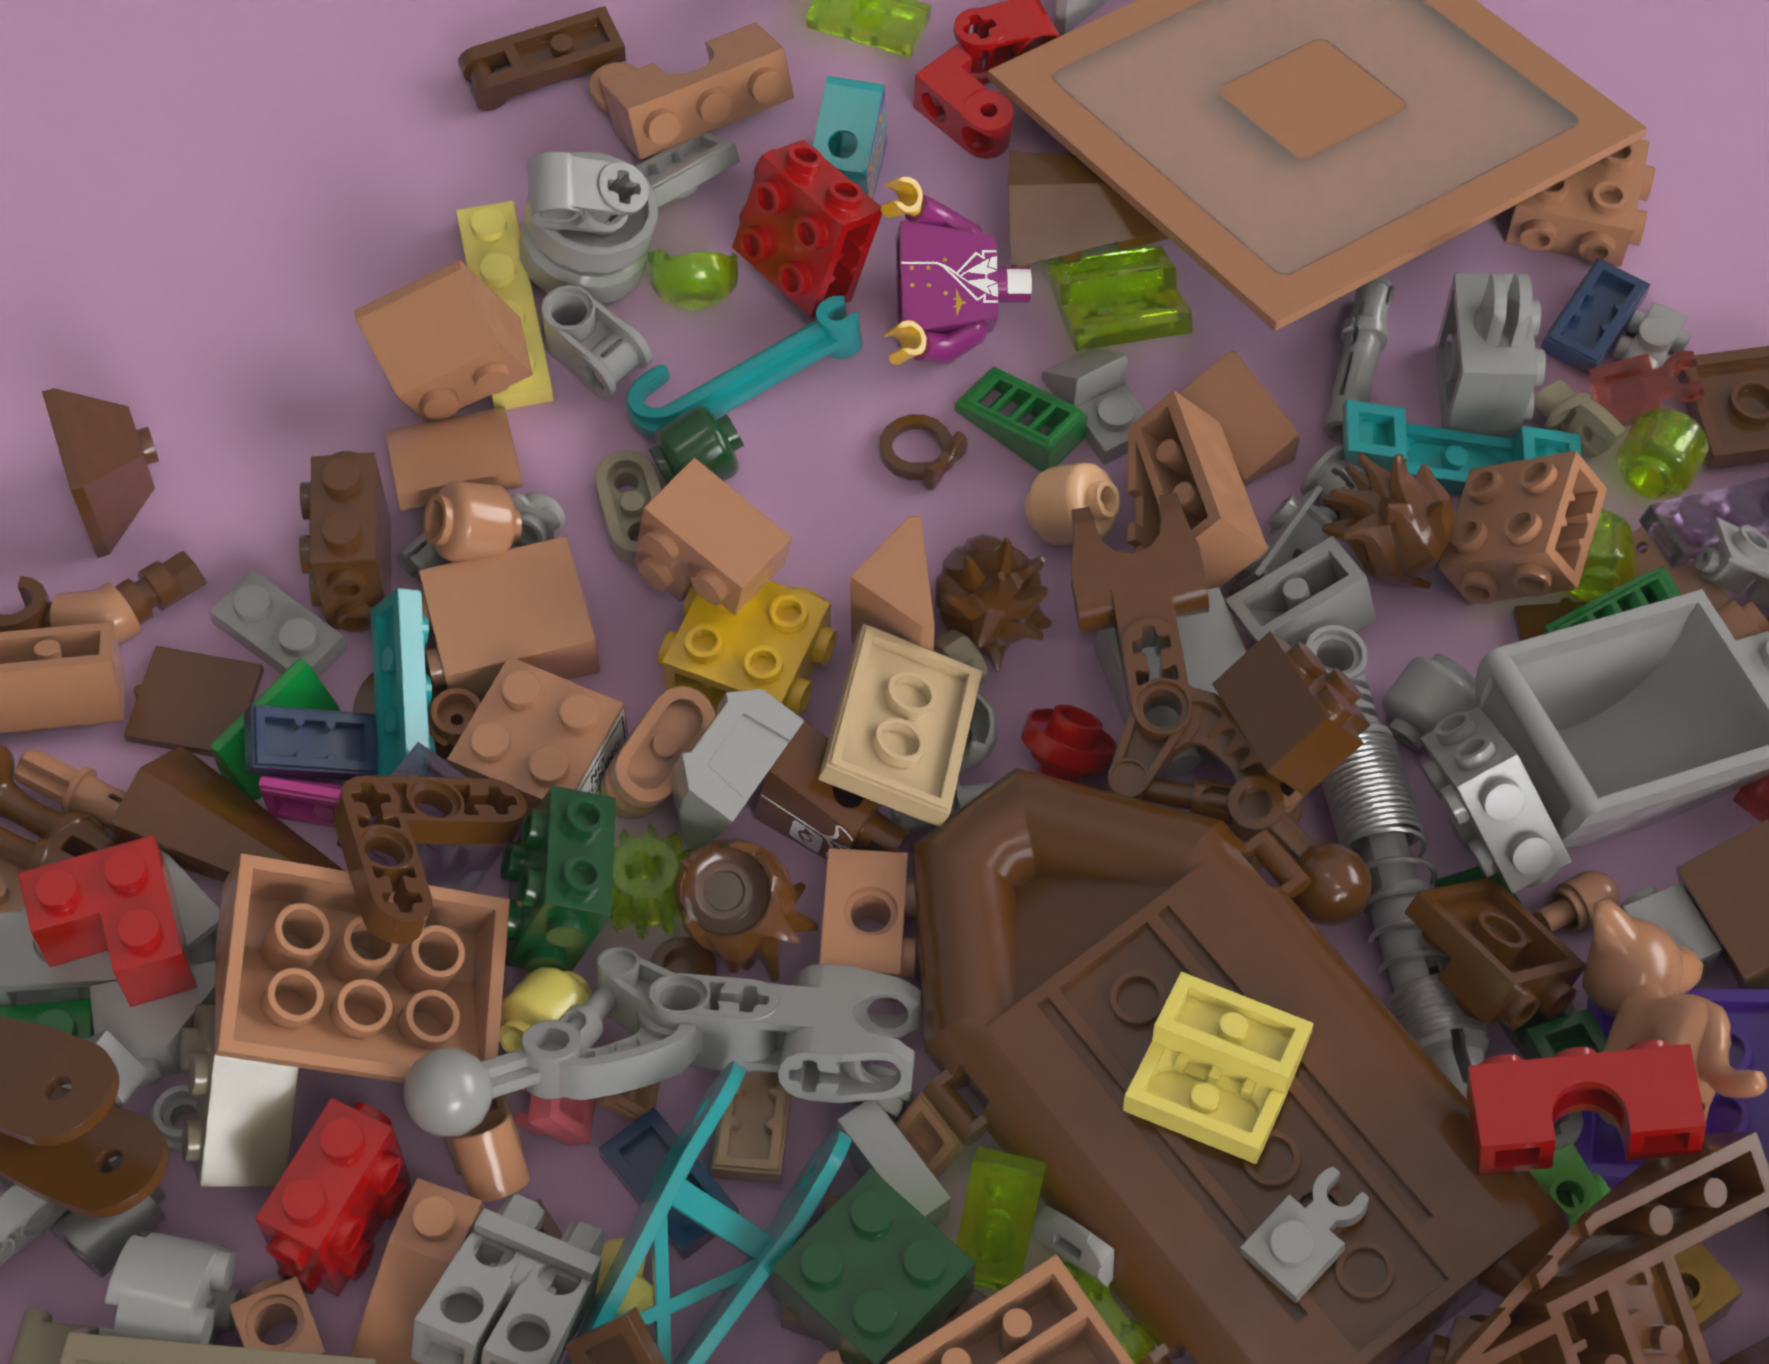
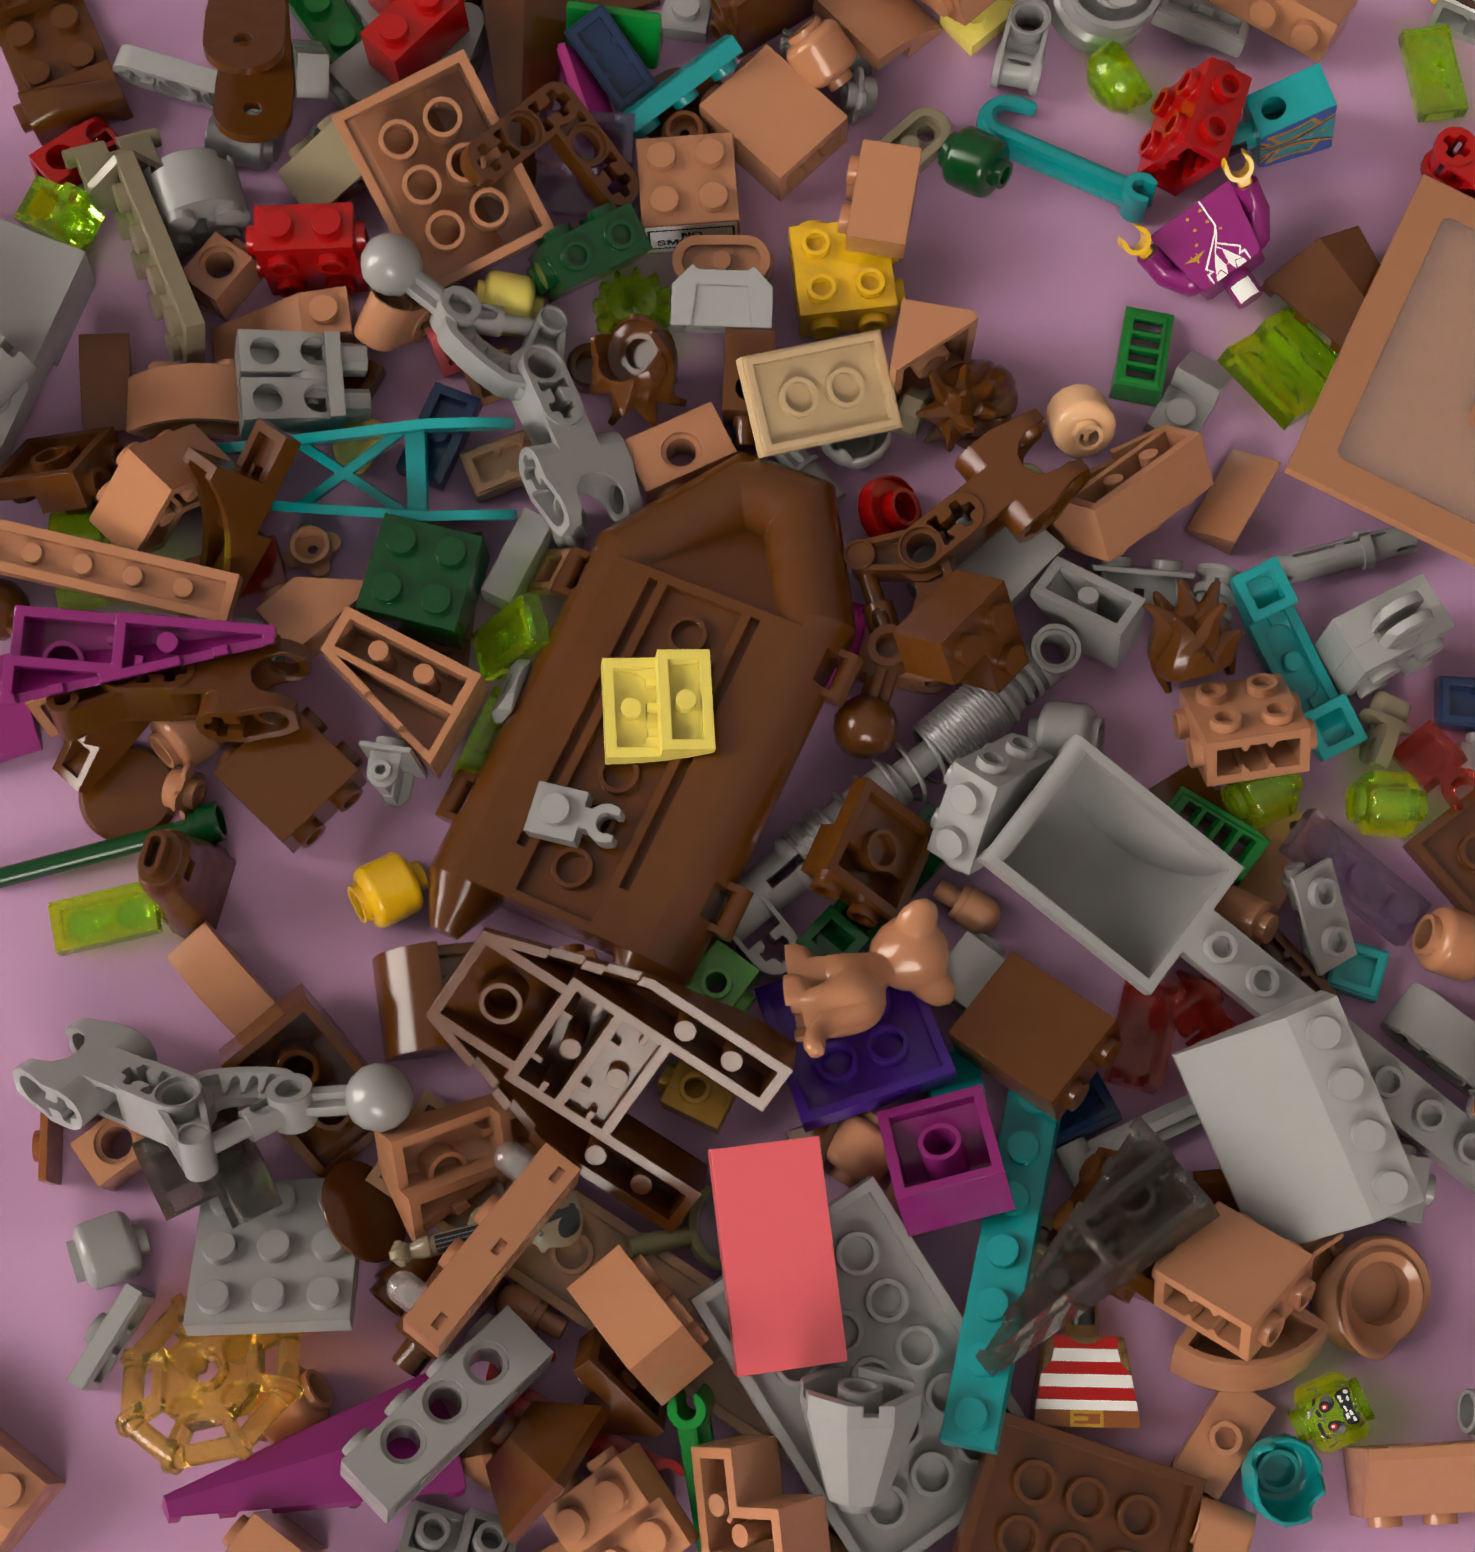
camera: 65 degrees right, 15 degrees up
(930, 472) = (1060, 321): reddish brown piece -> none
(962, 105) = (1385, 188): red leg -> none
(1643, 1090) = (718, 905): red arch -> none

